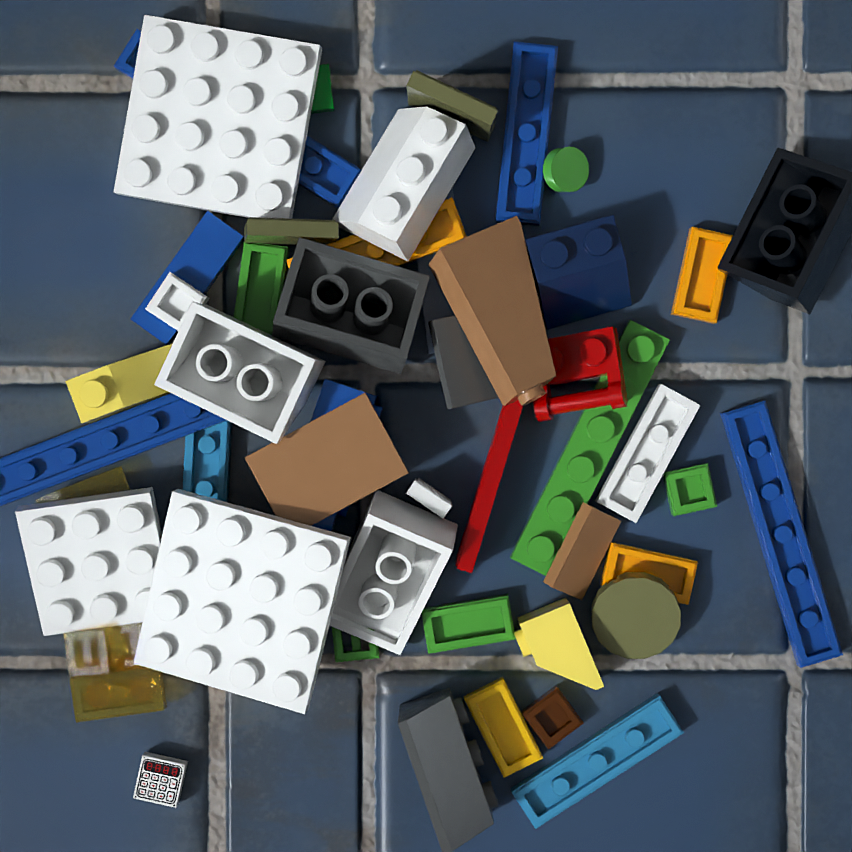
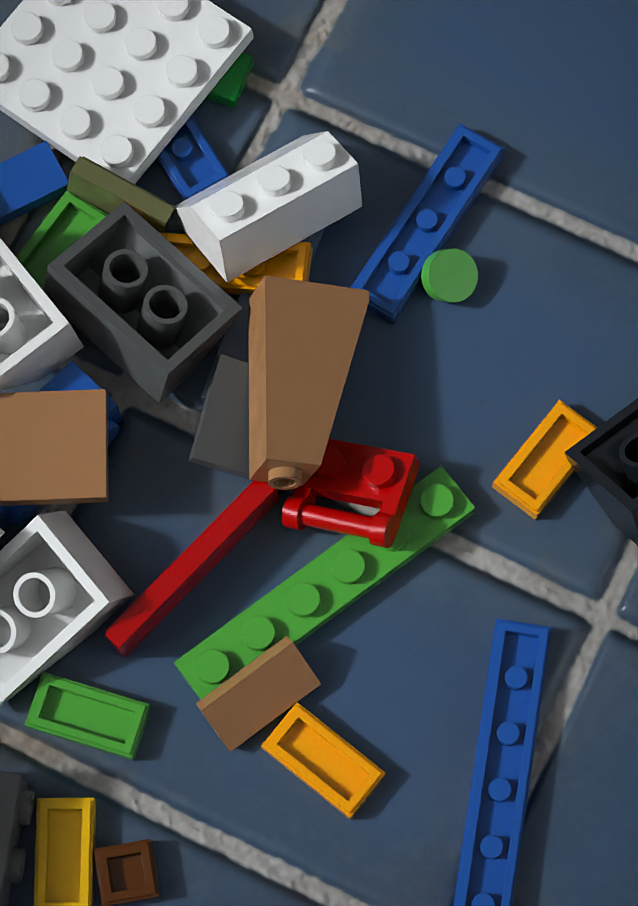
camera: 30 degrees right, 15 degrees down
(429, 497) = (118, 548): white tile -> none
(430, 92) = (375, 160): olive tile -> none
(558, 643) = (177, 783): light yellow slope -> none
(579, 272) = (408, 386): dark blue slope -> none
(636, 615) = (282, 797): olive tile -> none
(647, 453) = (387, 620): white plate -> none
(689, 489) = (417, 687): bright green tile -> none

